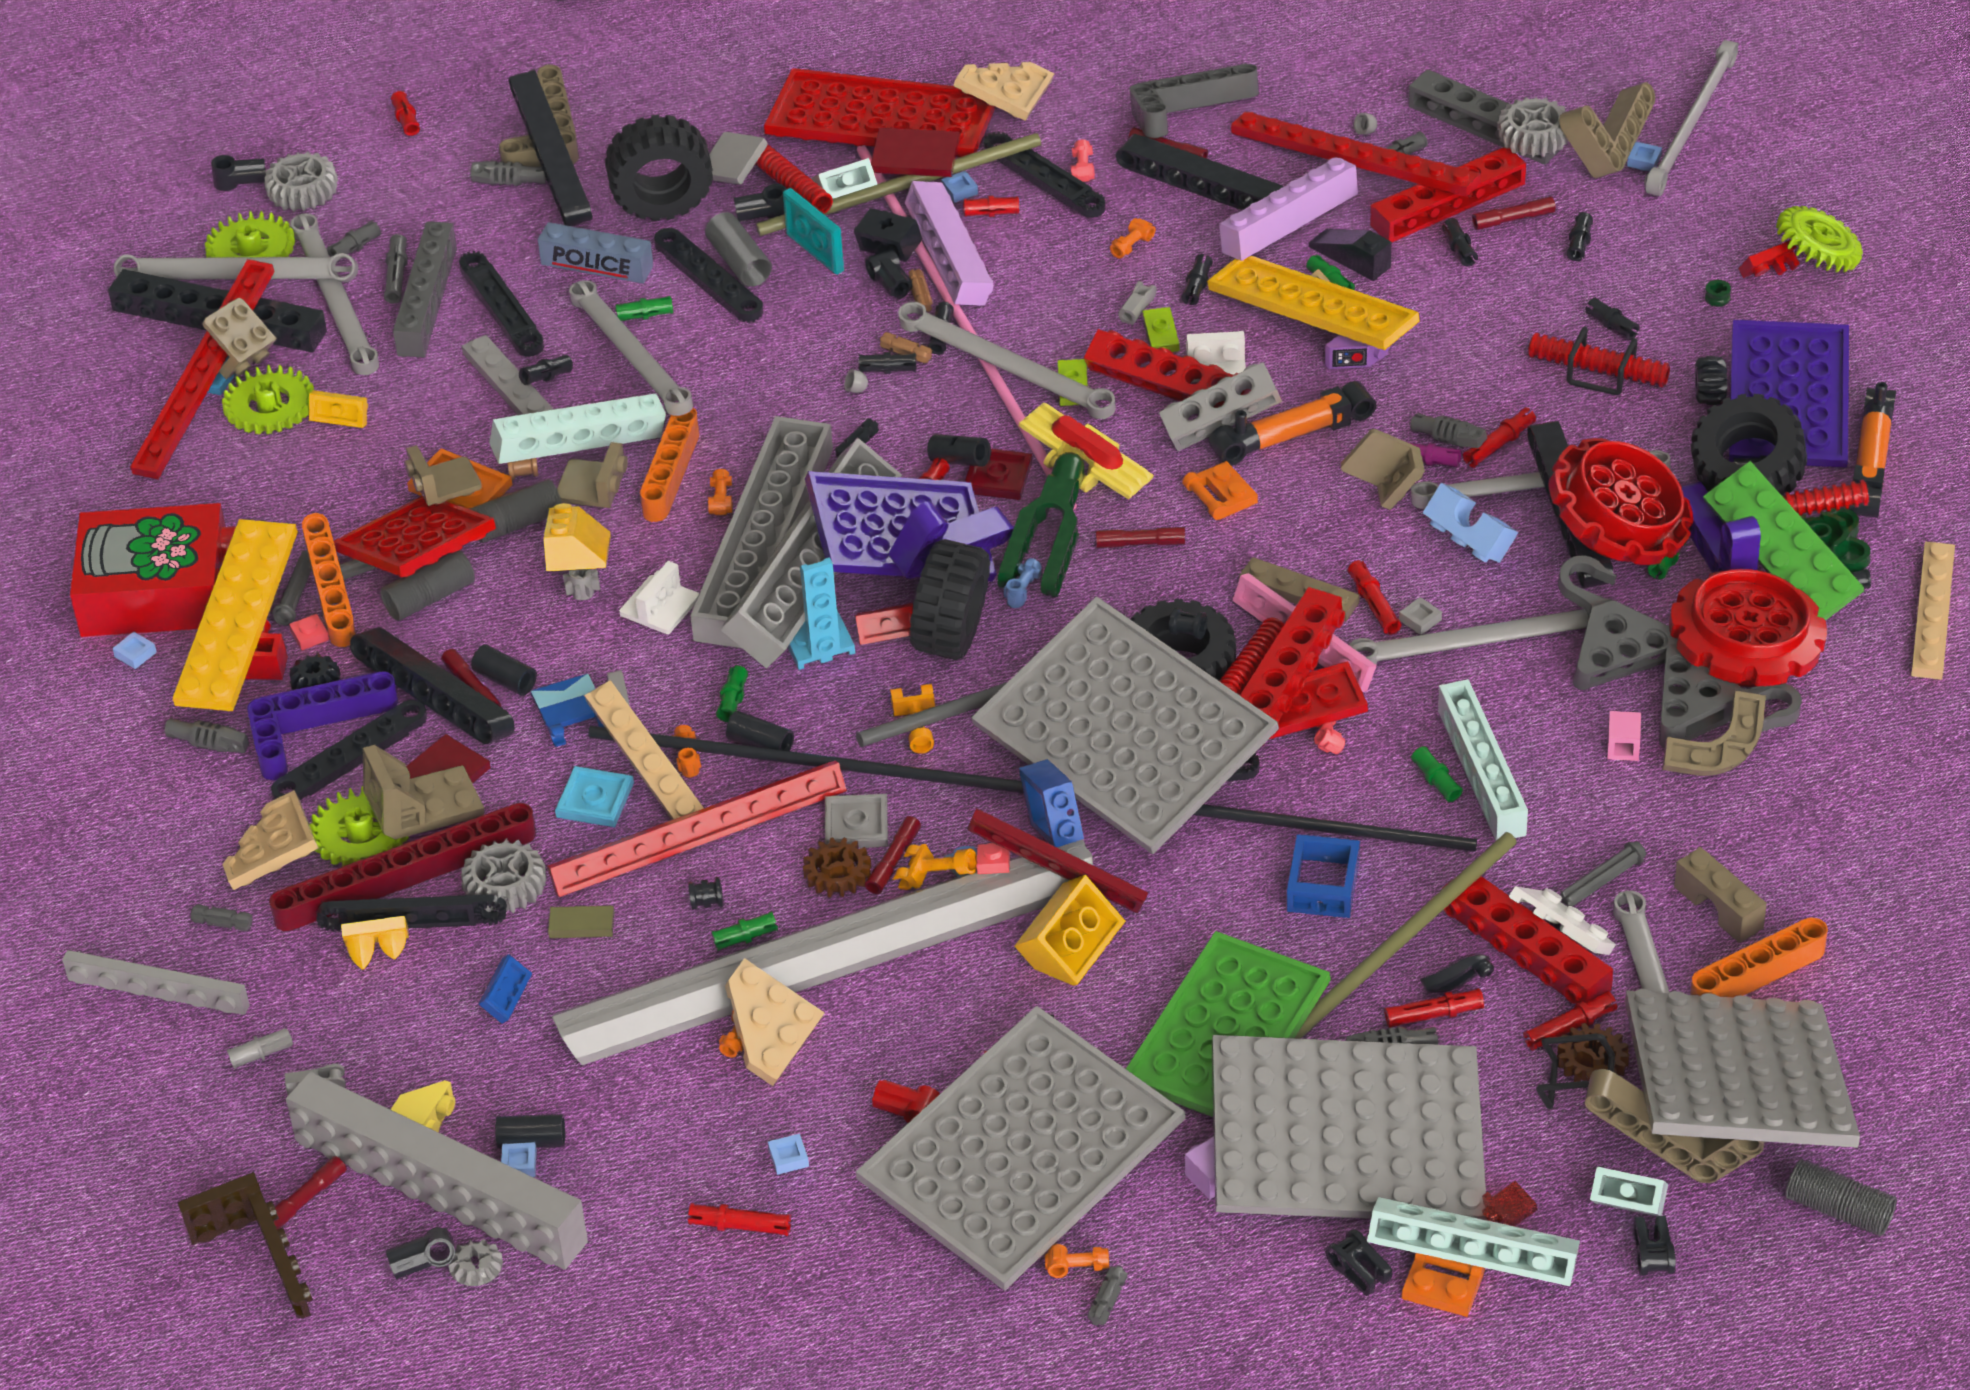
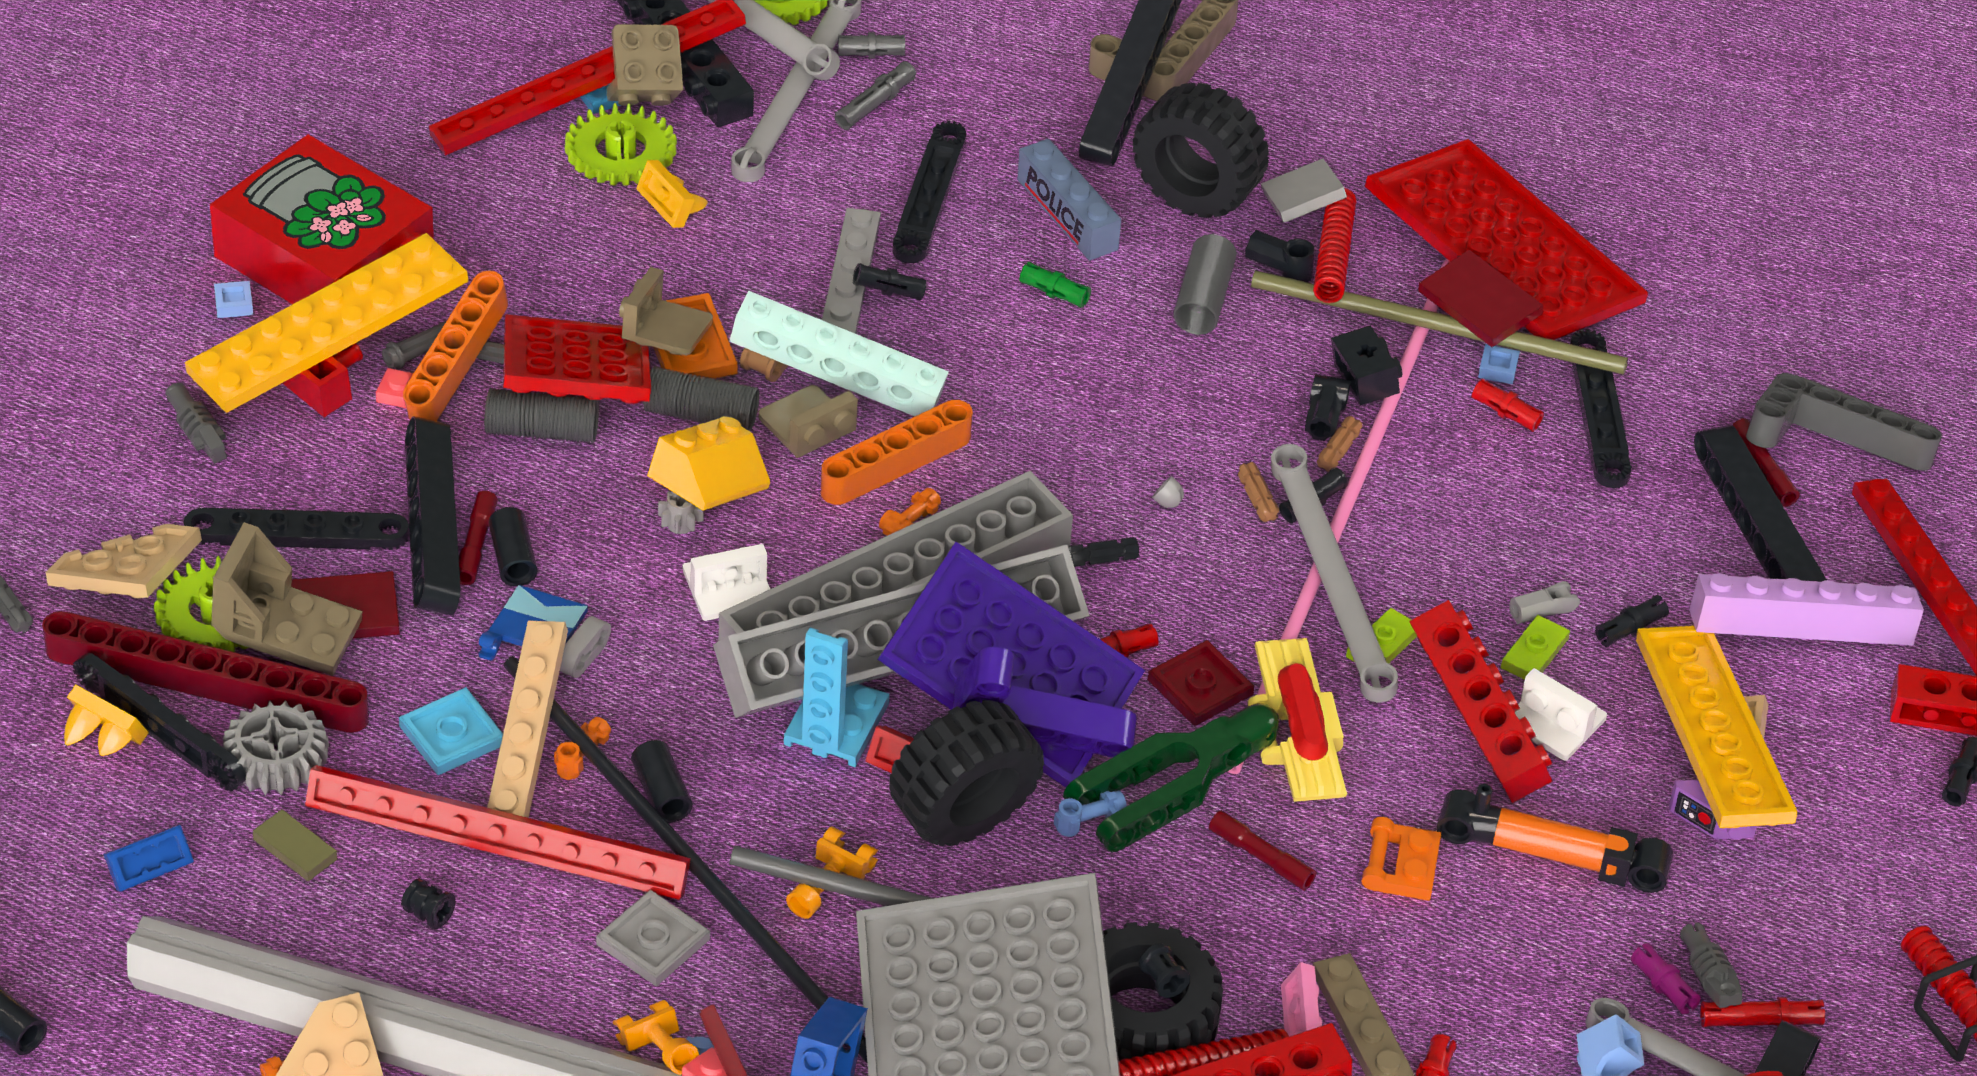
camera: 35 degrees right, 0 degrees up
(313, 672) = (346, 434): black gear -> none
(313, 708) = (300, 456): dark purple beam -> none
(425, 289) = (873, 131): dark grey brick -> none
(505, 173) = (1075, 65): dark grey hinge -> none
(631, 348) = (987, 314): light grey piece -> none
(708, 275) = (1155, 292): black plate -> none
(732, 693) = (690, 720): green pin -> none
(744, 931) = (419, 968): green pin -> none
(813, 231) = (1290, 313): teal tile -> none
(836, 867) = (573, 969): reddish brown gear -> none
(847, 178) = (1383, 282): light aqua brick -> none
(884, 869) = (668, 989): dark red piece -> none
(887, 362) = (1221, 495): black pin -> none
(949, 243) = (1416, 414): lavender brick -> none
(959, 449) = (1178, 630): black pin -> none
(1006, 87) = (1656, 291): tan plate -> none
(1083, 170) = (1647, 430): coral bar -> none
(1137, 230) = (1630, 528): orange bar -> none
(1202, 402) = (1534, 785): light grey brick -> none
(1330, 271) = (1779, 713): green pin -> none
(1355, 249) = (1836, 704): black slope -> none
(1385, 463) = (1587, 949): dark tan bracket -> none

